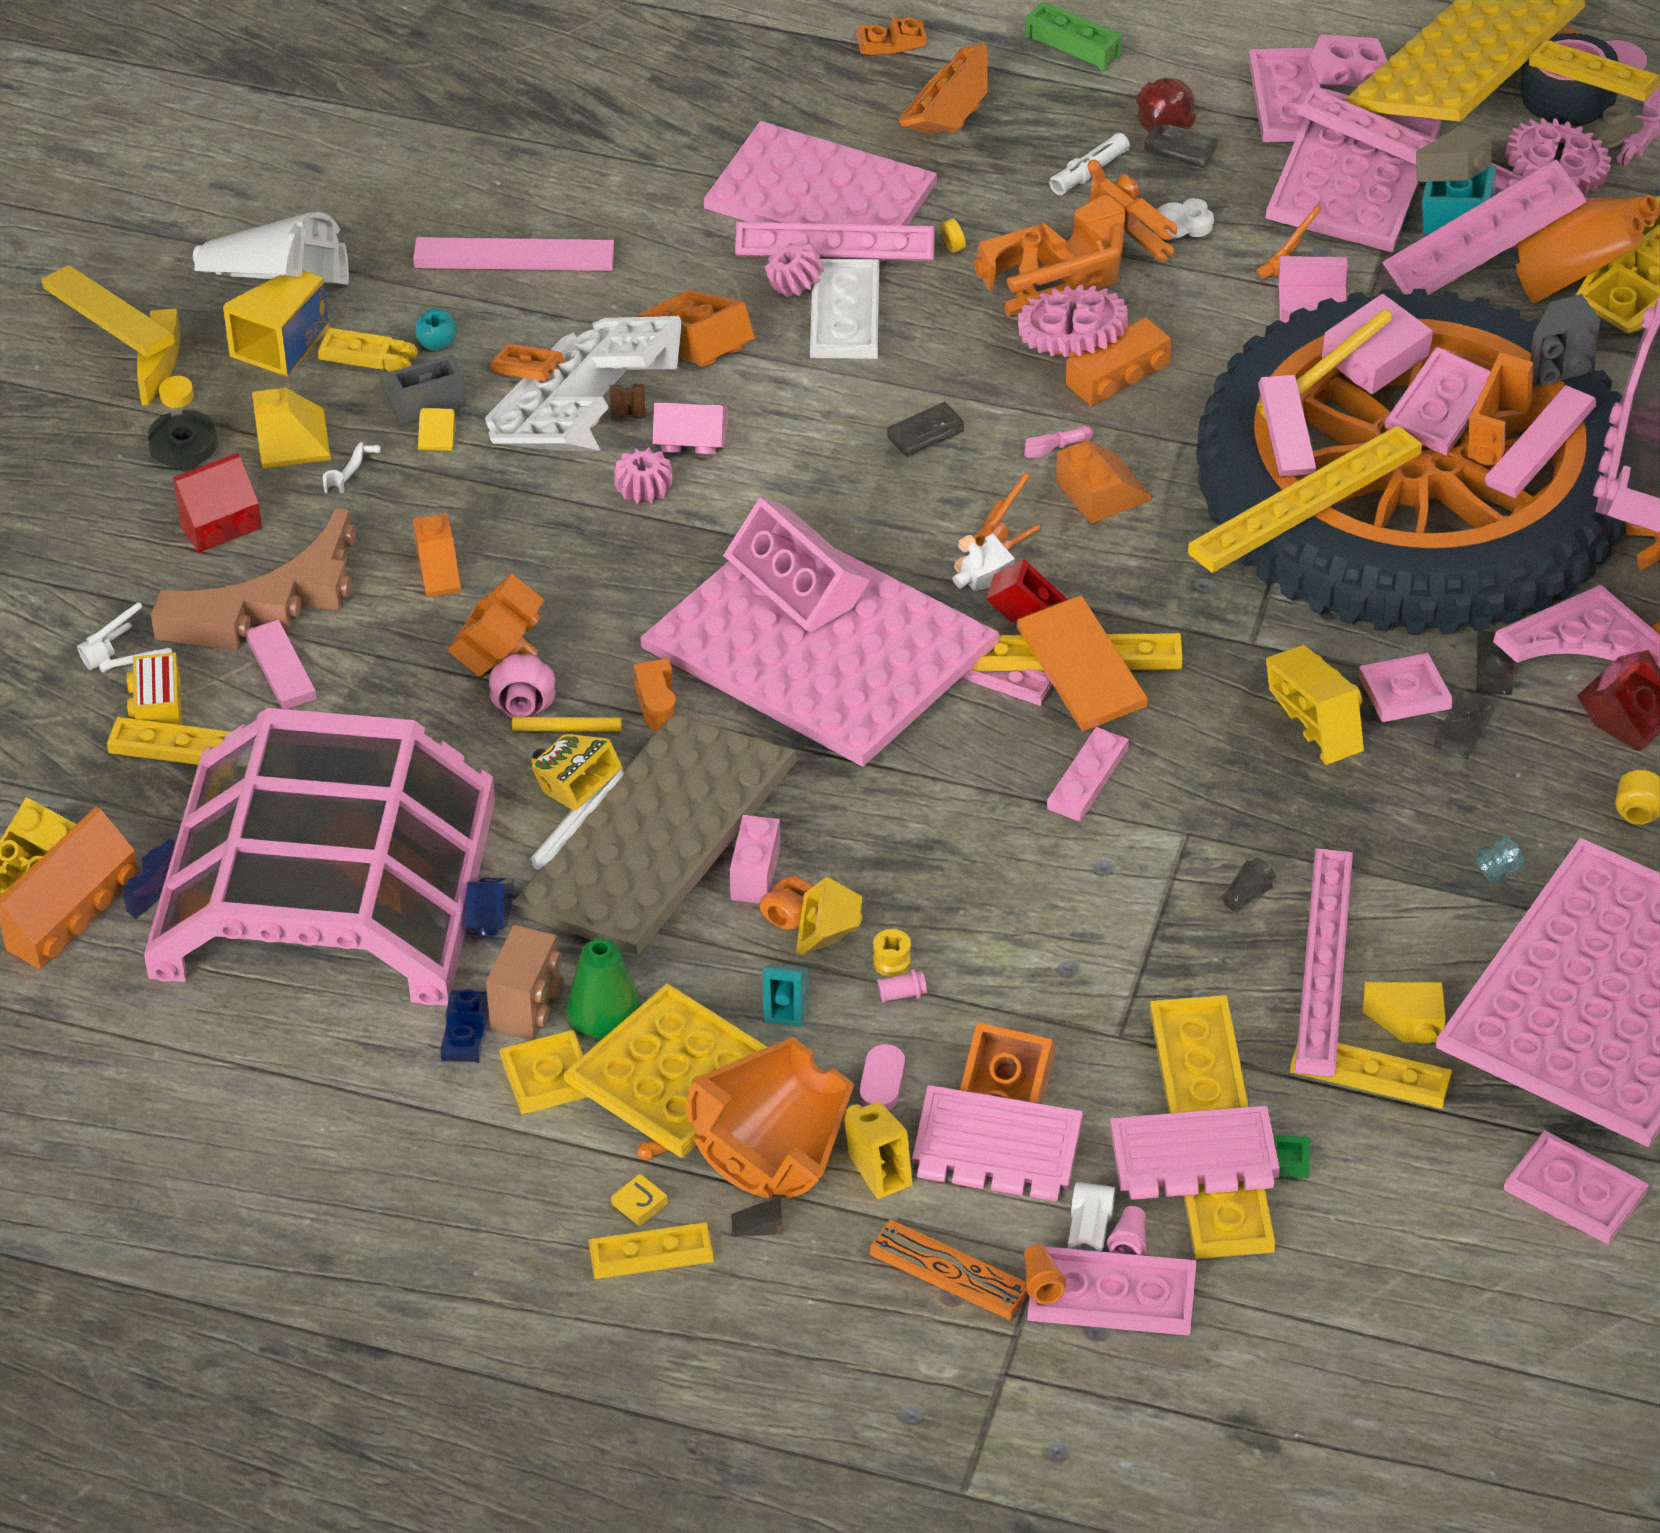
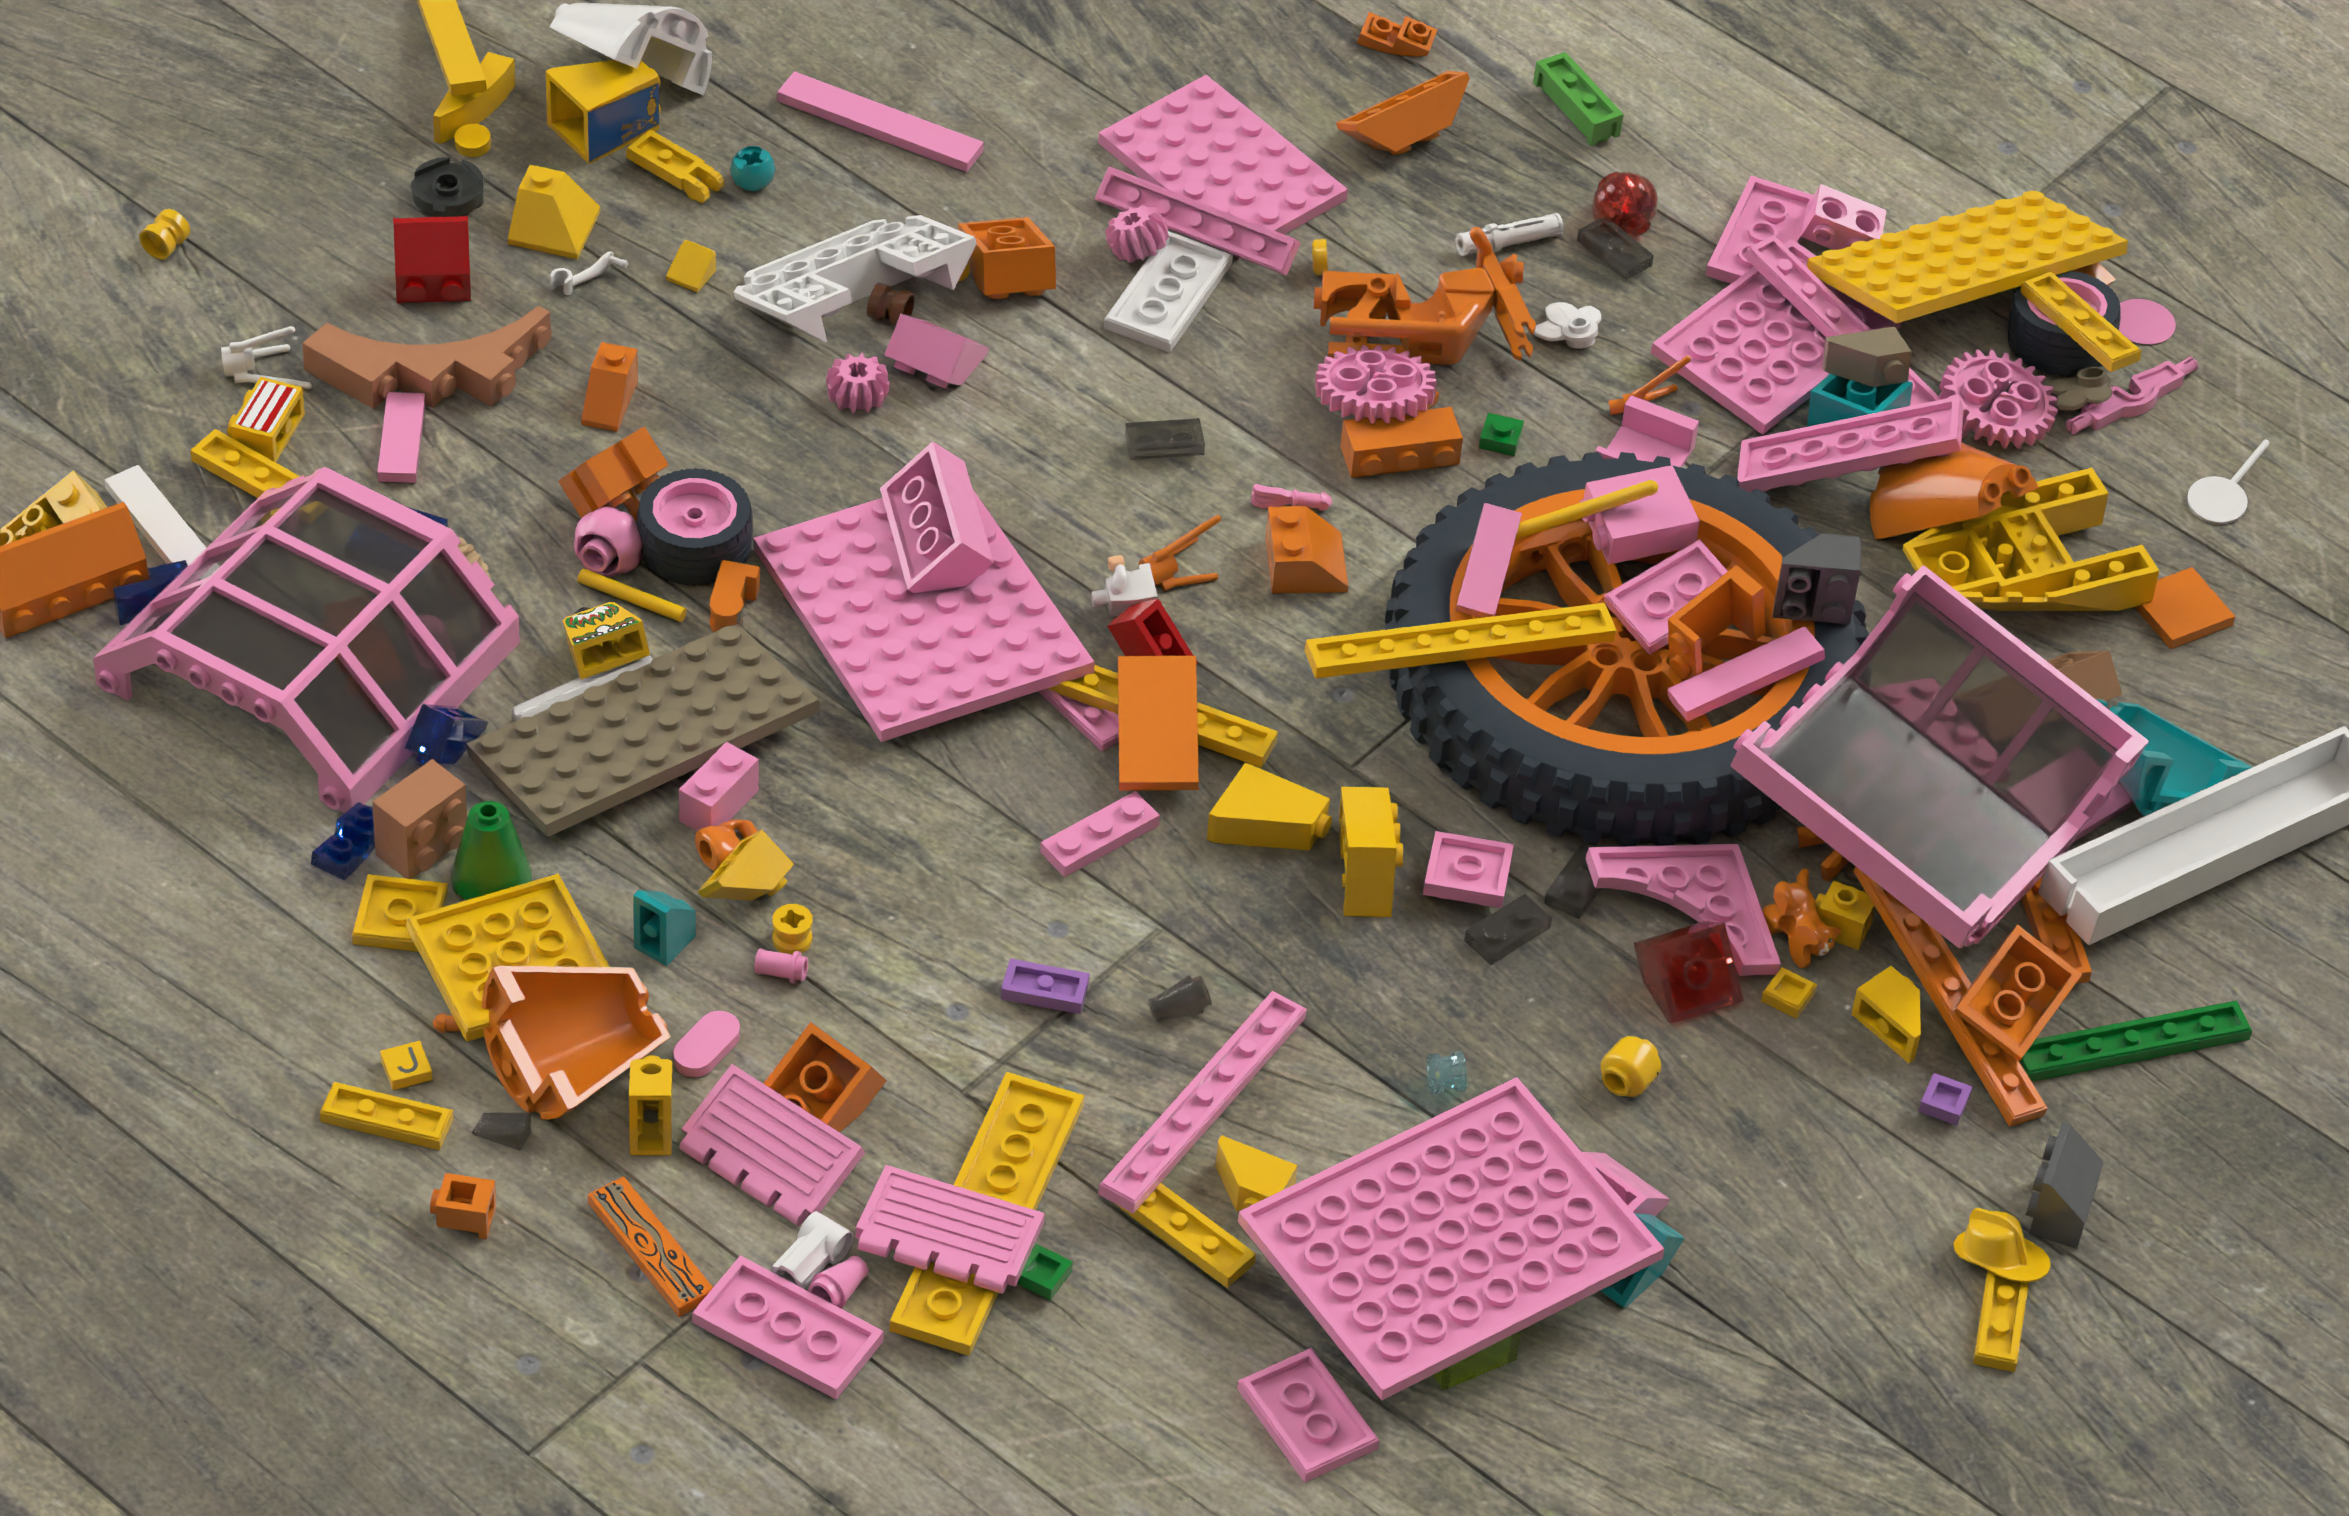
camera: 20 degrees right, 0 degrees up
(136, 824) = (154, 516): none -> white tile
(424, 386) = (702, 219): dark grey slope -> none
(526, 362) = (814, 235): orange tile -> none
(590, 644) = (693, 524): none -> black wheel
(773, 1298) = (465, 1204): none -> orange brick
(1043, 1277) = (721, 1285): orange cone -> none
(1131, 917) = (1045, 986): none -> medium lavender plate
(1189, 326) = (1501, 434): none -> green plate
(1217, 702) = (1268, 812): none -> yellow slope

